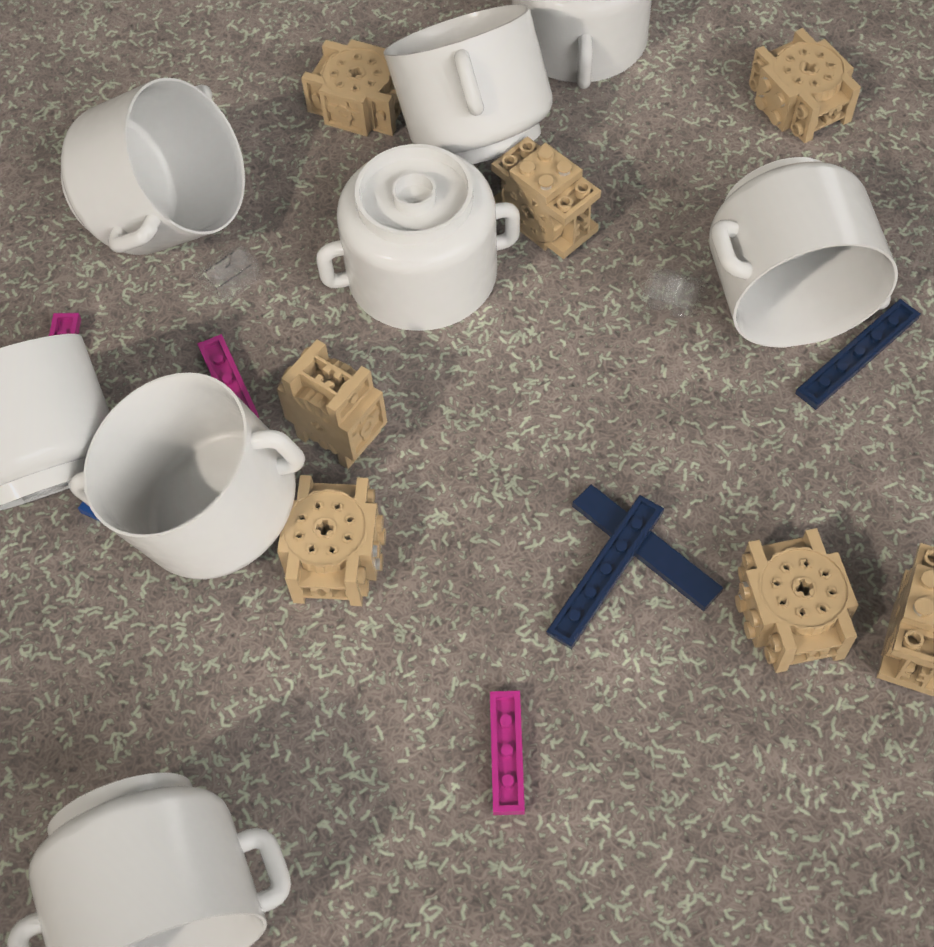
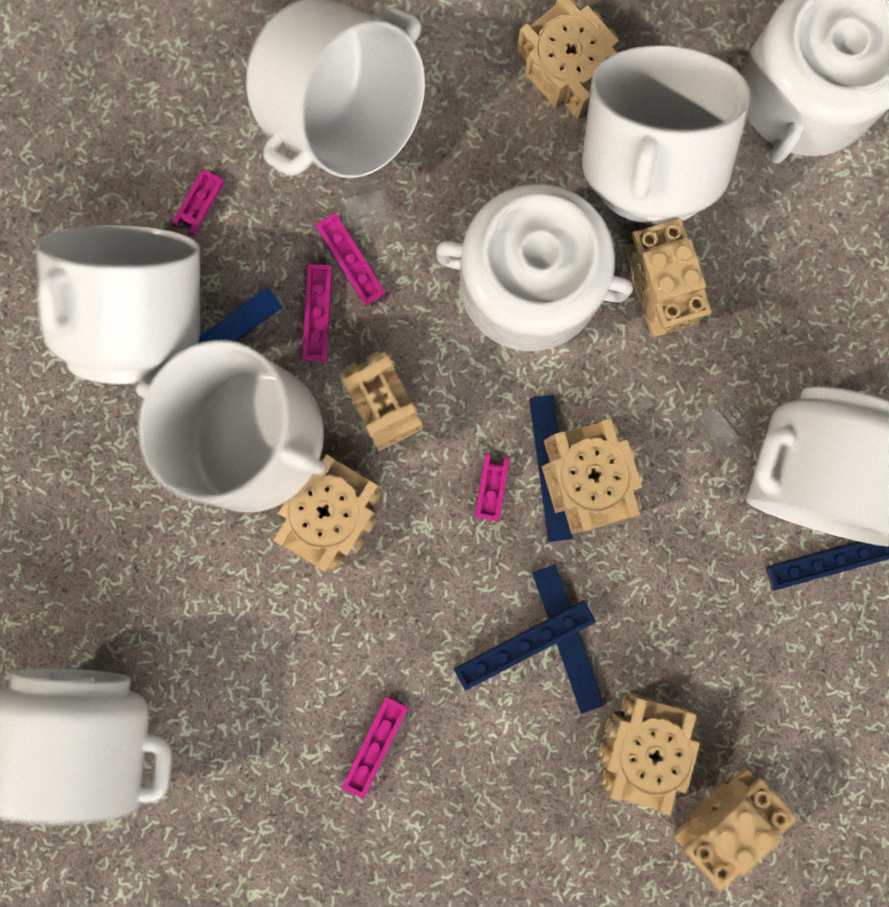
camera: 20 degrees right, 25 degrees up
(238, 324) = (350, 259): none -> dark pink plate
(487, 449) = (491, 489): none -> dark pink hinge
(536, 408) = (544, 426): none -> dark blue tile
(577, 383) = (611, 472): none -> tan piece

